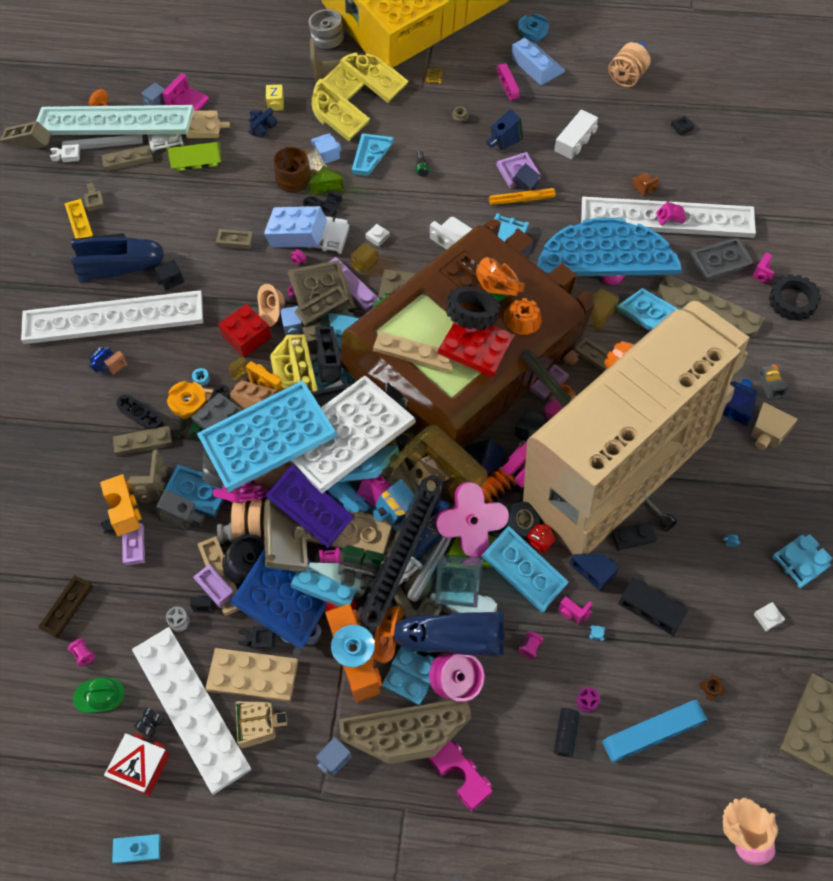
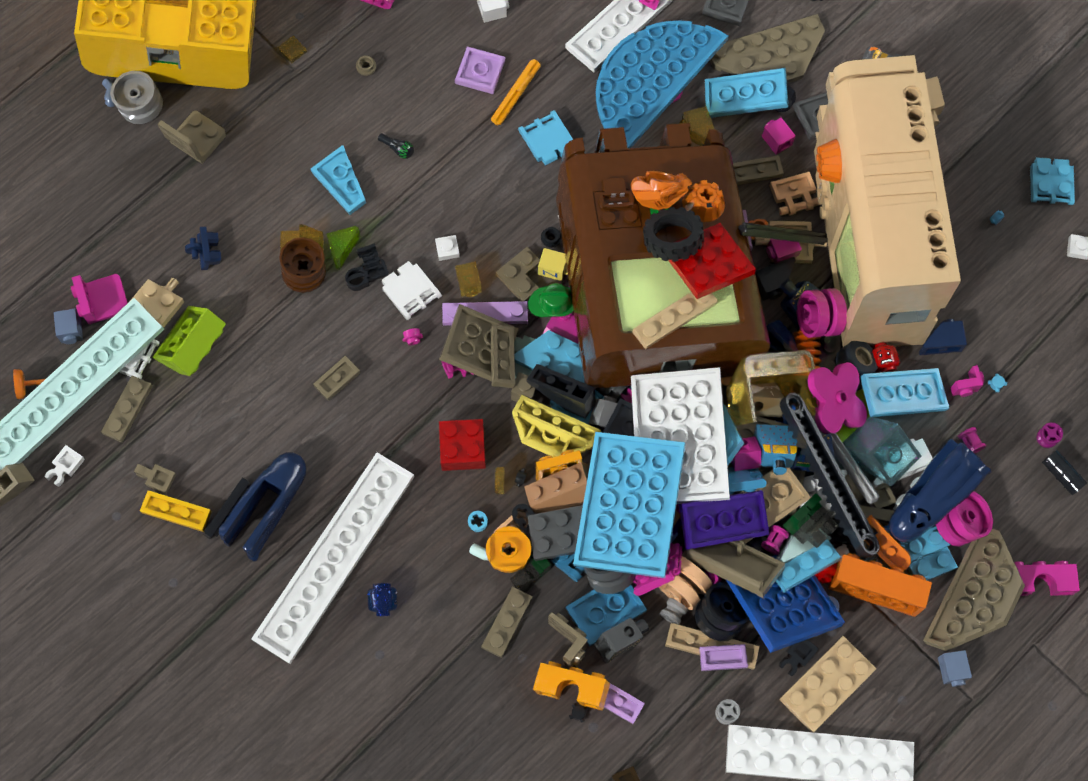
camera: 55 degrees left, 10 degrees up
(106, 141) = (79, 421): light grey axle -> none
(116, 362) = (397, 587): nougat tile -> none
(136, 405) = (455, 604): black beam -> none
(169, 275) = (329, 469): black brick -> none
(202, 604) = (730, 680): black plate -> none
(257, 722) = (879, 709): tan torso -> none
(270, 303) = (452, 401): light nougat piece -> none
(275, 97) = (183, 213): light yellow brick -> none
(291, 323) = (487, 396): light blue brick -> none
(295, 226) = (380, 312): light blue brick -> none
(327, 147) = (301, 212): light blue brick -> none
(335, 90) = (231, 138): light yellow plate -> none
(350, 636) = (900, 573): medium azure dish -> none
(449, 232) = (509, 183): white bracket -> none
(506, 131) = (431, 44): dark blue torso -> none
(526, 178) = (503, 72): dark blue brick -> none
(653, 606) = (1009, 322): black brick -> none

